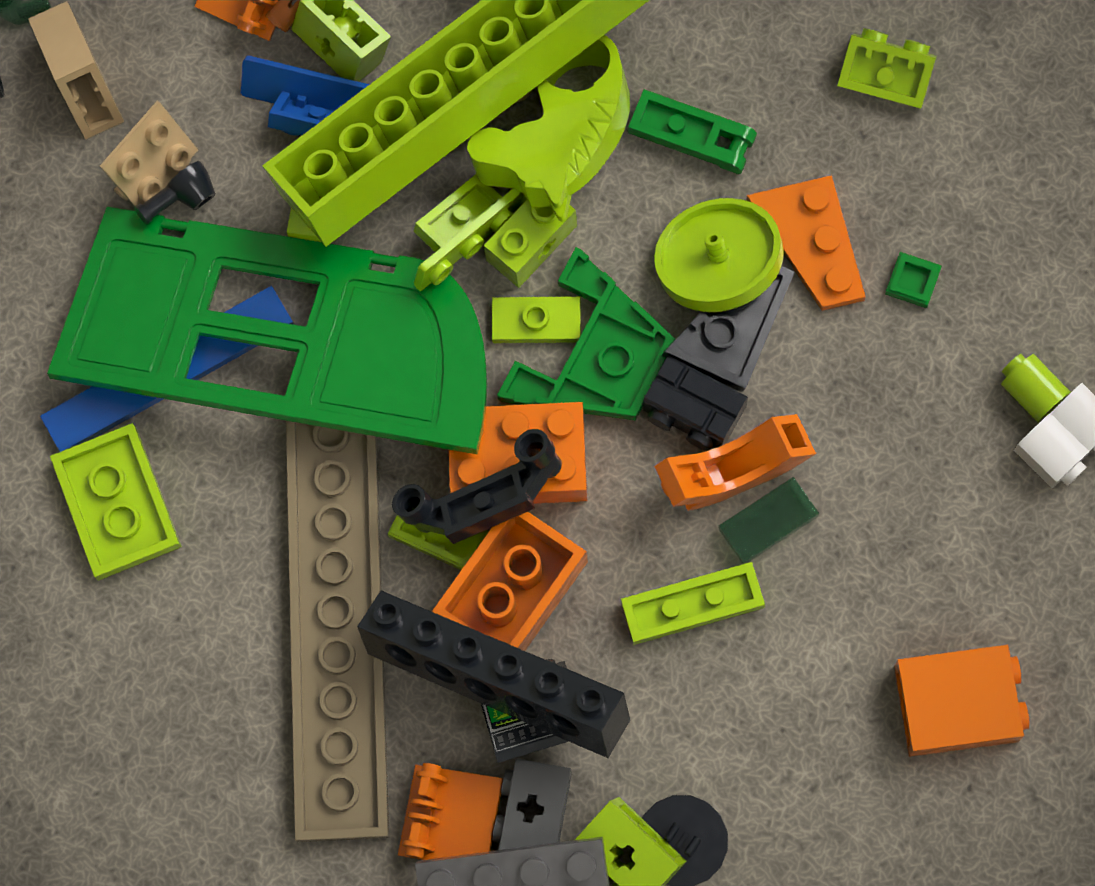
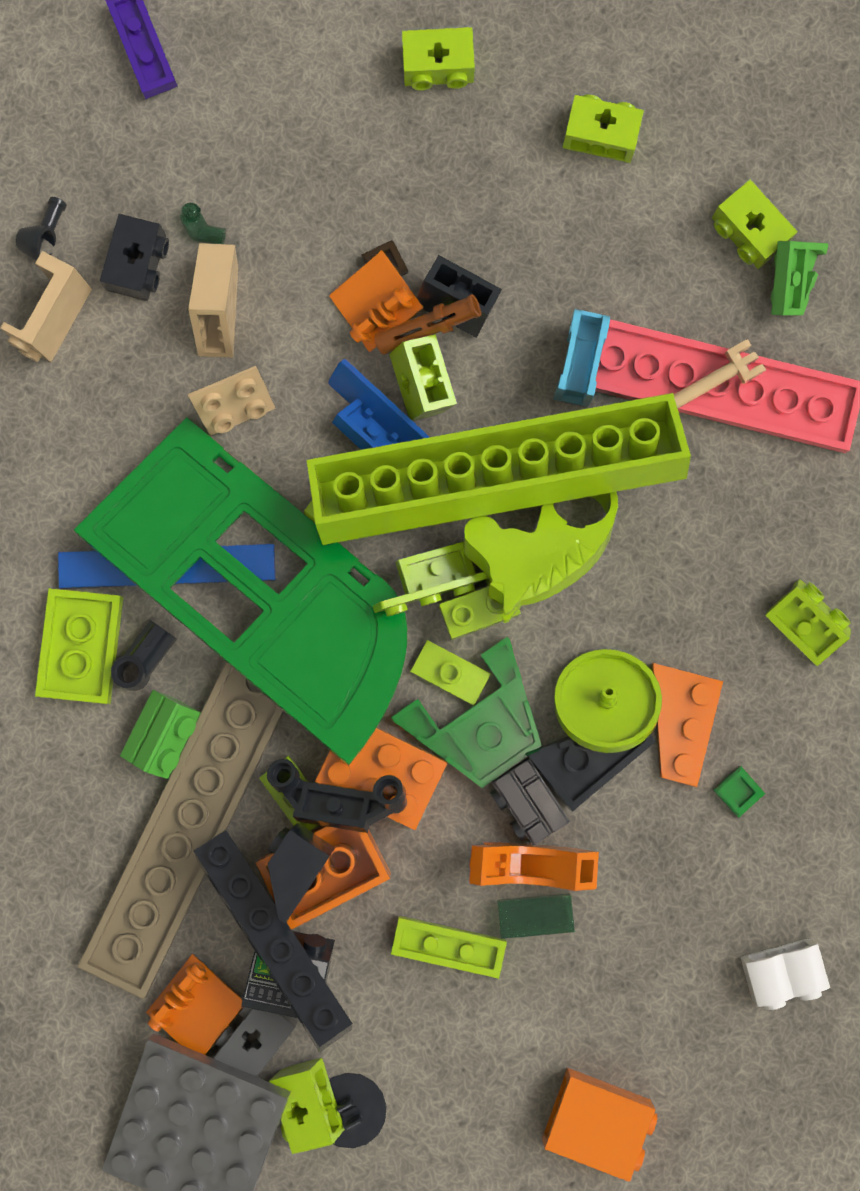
camera: 20 degrees right, 10 degrees up
(189, 186) = (253, 437): black bar -> none
(192, 472) = (144, 652): none -> black piece
(255, 542) = (160, 734): none -> bright green brick
(476, 572) = (294, 866): none -> black slope
(691, 131) = (639, 591): green plate -> none
(1033, 386) = (781, 923): lime brick -> none

